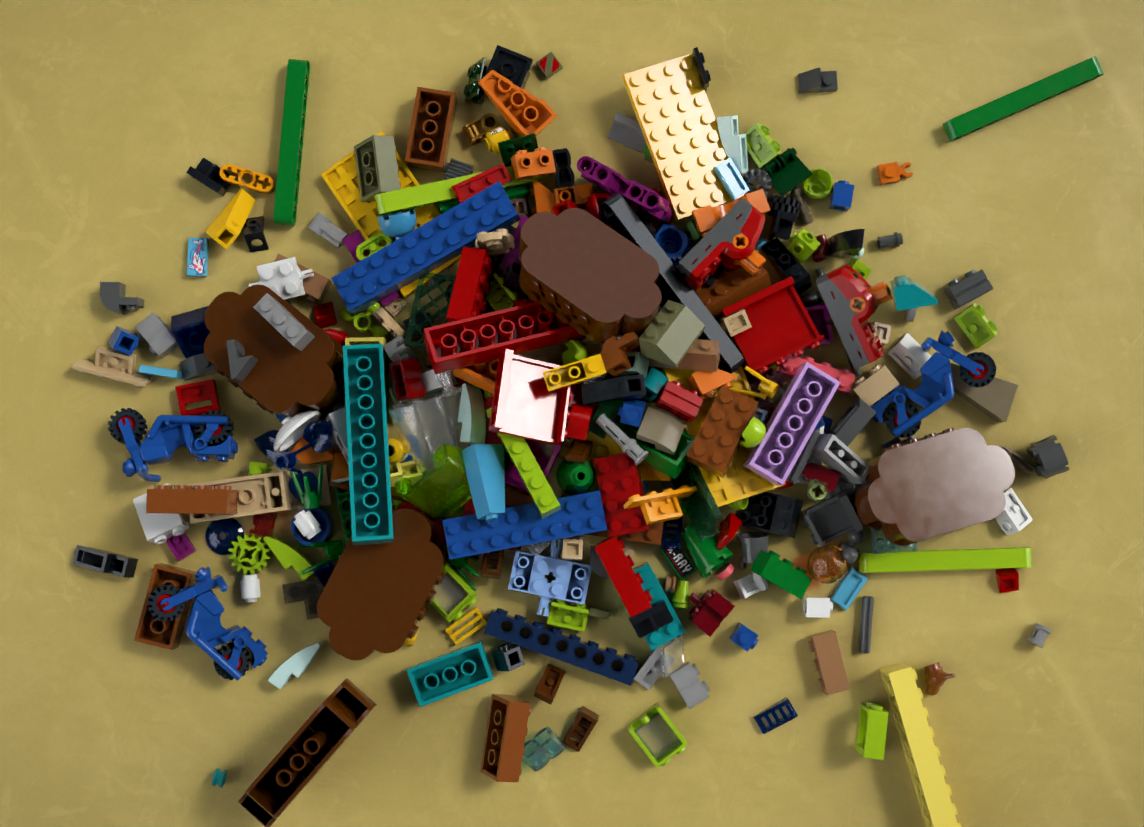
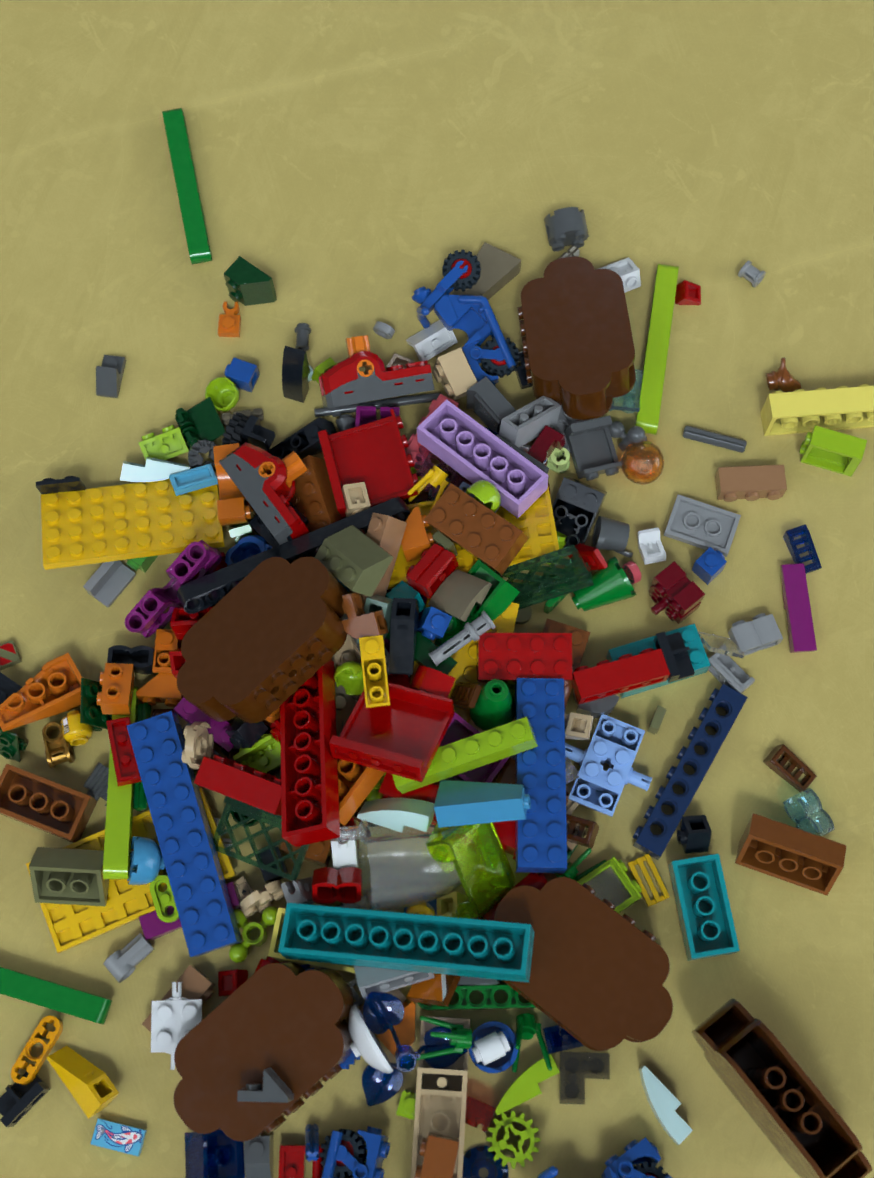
camera: 80 degrees left, 15 degrees down
(218, 402) = (312, 1142): none -> blue axle
(250, 587) = (557, 1147): white brick -> none
(255, 230) = (104, 1052): black bracket -> none
(284, 322) = (231, 1020): light grey brick -> none
(549, 684) = (732, 793): reddish brown slope -> none
(568, 615) = (654, 755): lime bracket -> none
(657, 735) = (808, 680): window -> none
(660, 506) = (547, 613): light orange bracket -> none
(670, 584) = (636, 633): medium nougat bush -> none
(672, 544) = (592, 621): slope -> none
(679, 561) = (609, 621): tile -> none
(681, 594) = (651, 624): lime cone -> none
(705, 407) = (444, 542): none -> olive tile
(720, 718) = (798, 608): none -> magenta slope
(780, 625) = (702, 525): none -> light grey plate
(781, 573) = (644, 509): green brick -> none
(802, 245) = (285, 421): lime brick -> none
(817, 606) = (687, 482): white brick -> none
(823, 249) = (294, 403): dark red arm -> none
(848, 588) = (673, 449): medium azure tile -> none
(910, 294) = (367, 315): teal slope -> none
(929, 180) = (249, 284): none -> dark green slope
(968, 289) = (372, 271): dark grey brick -> none
(976, 325) = (413, 272): lime bracket -> none

